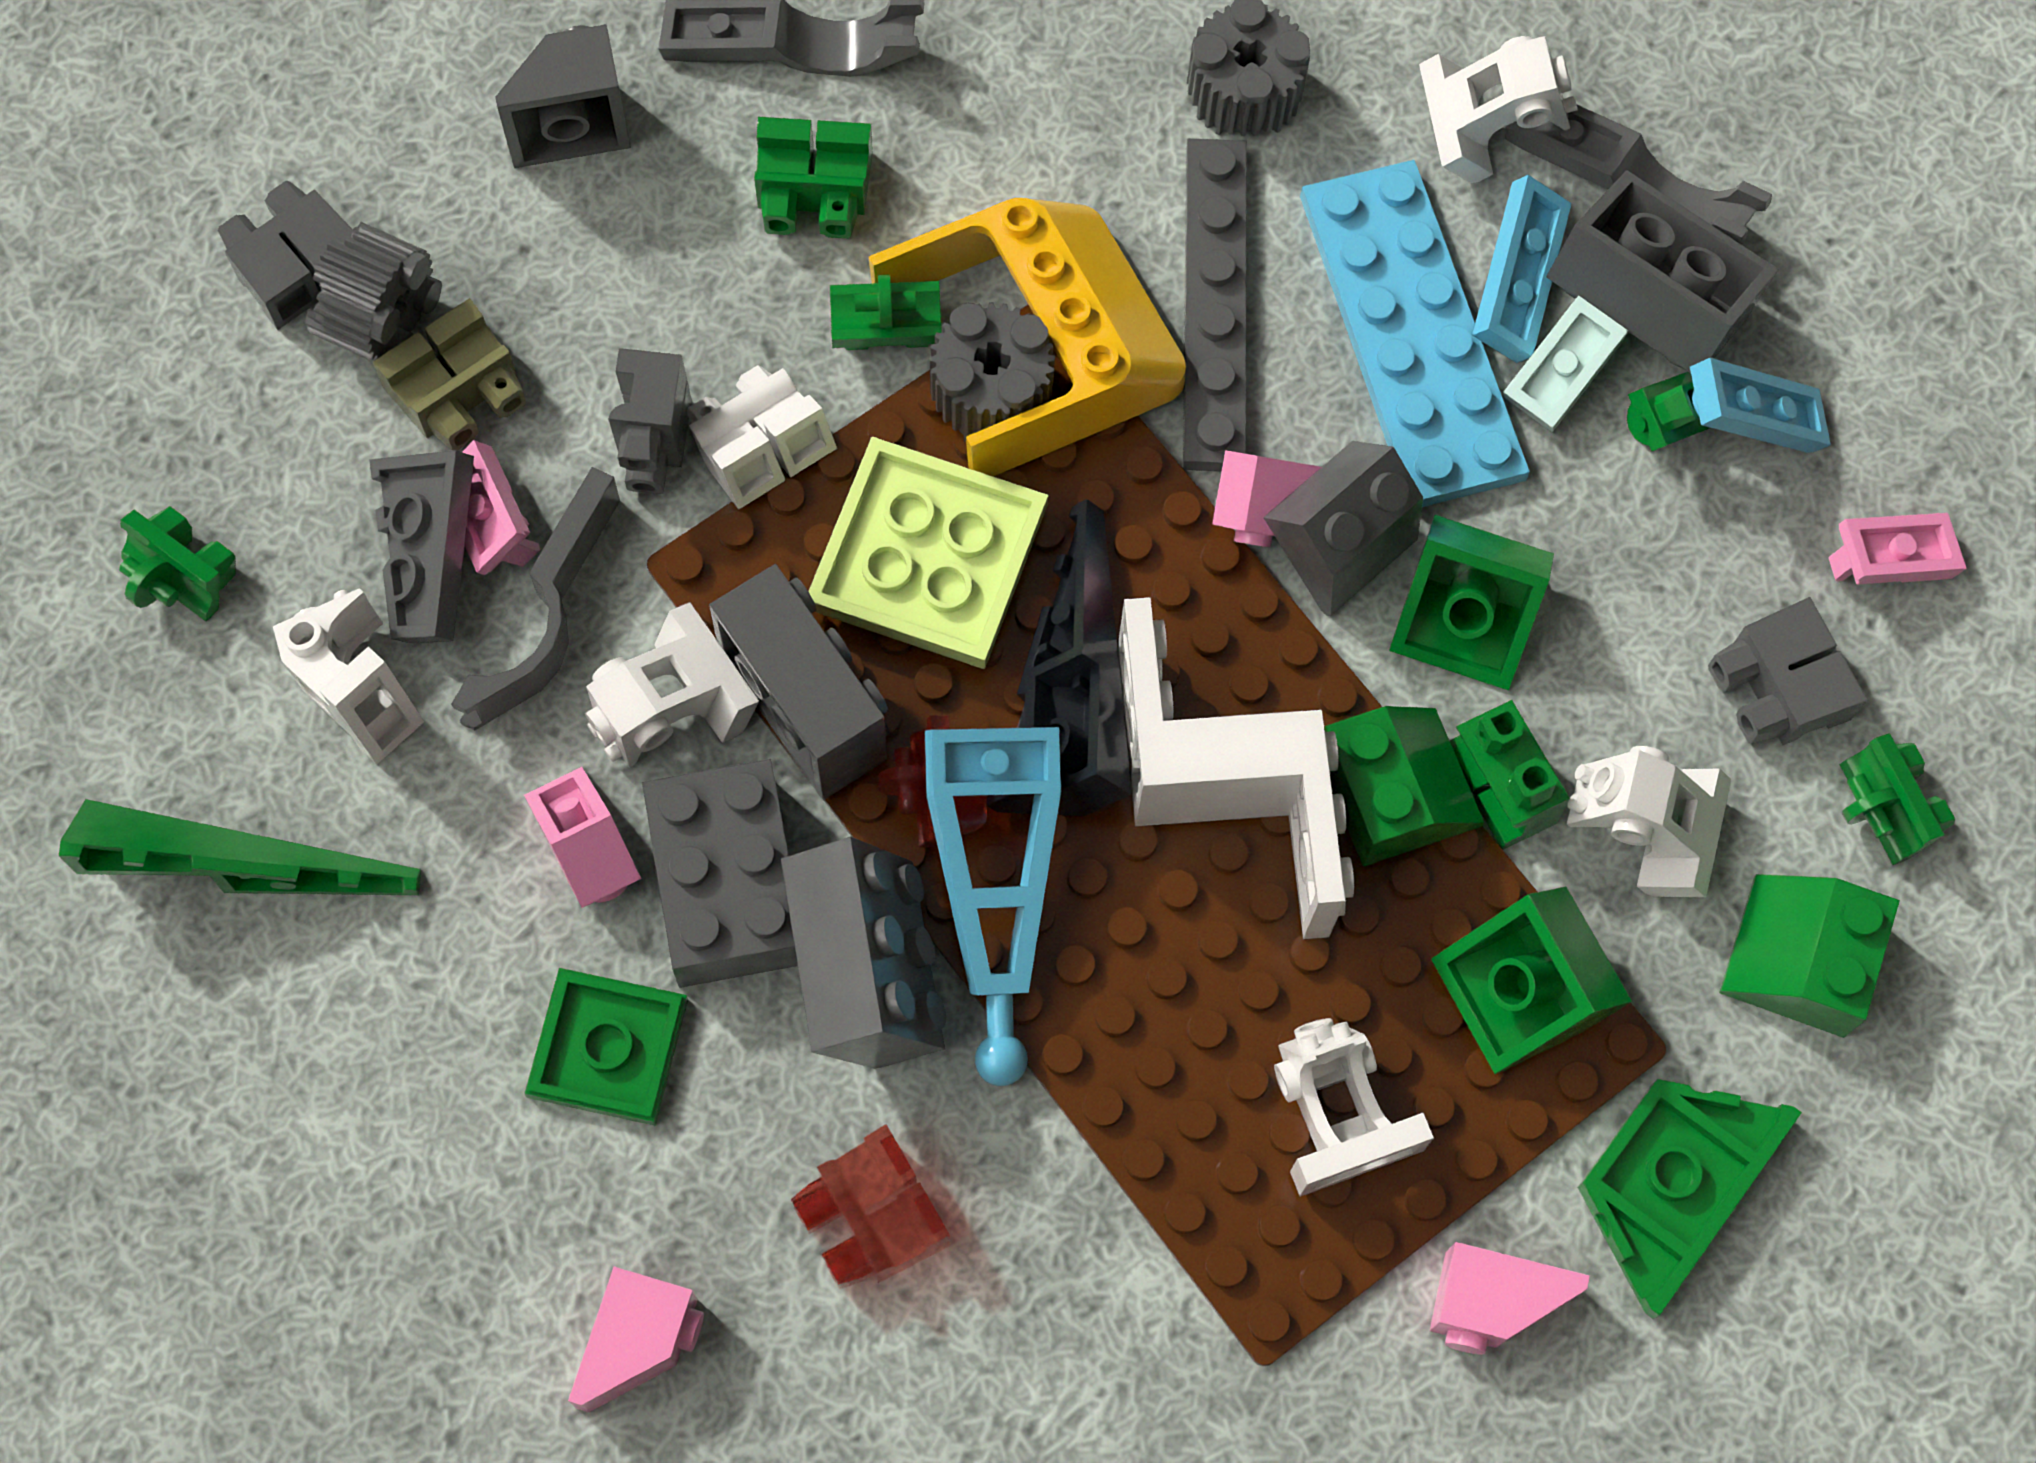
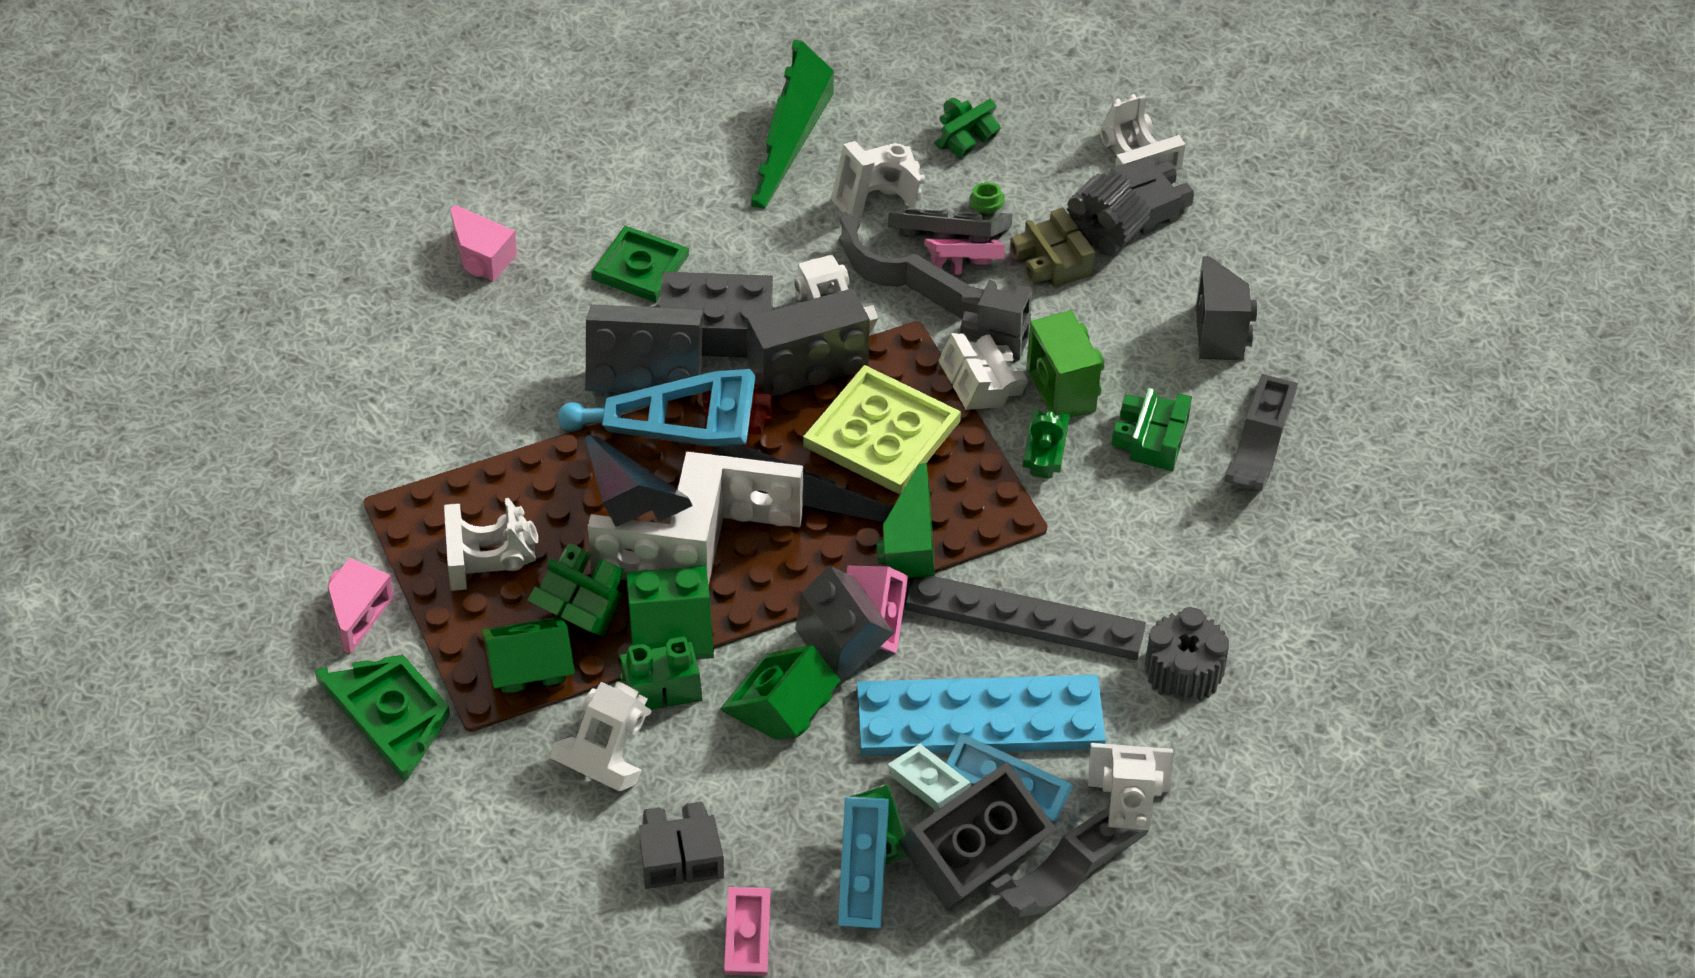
camera: 105 degrees right, 20 degrees down
(195, 264) = (1130, 125): none -> white tile
(334, 491) = (986, 198): none -> bright green plate
(583, 838) = (756, 255): bright pink slope -> none
(737, 301) = (1064, 364): none -> bright green brick
(881, 1207) = (508, 343): clear red hips -> none
(990, 366) = (988, 471): dark grey brick -> none
(1085, 297) = (1024, 531): yellow windscreen -> none
(1133, 464) = (909, 530): none -> green slope
(1241, 853) = (630, 488): none -> black wedge
(1414, 921) = (577, 597): none -> green hips
(1810, 950) = (495, 811): green slope -> none
(1891, 800) = (561, 884): green hips -> none

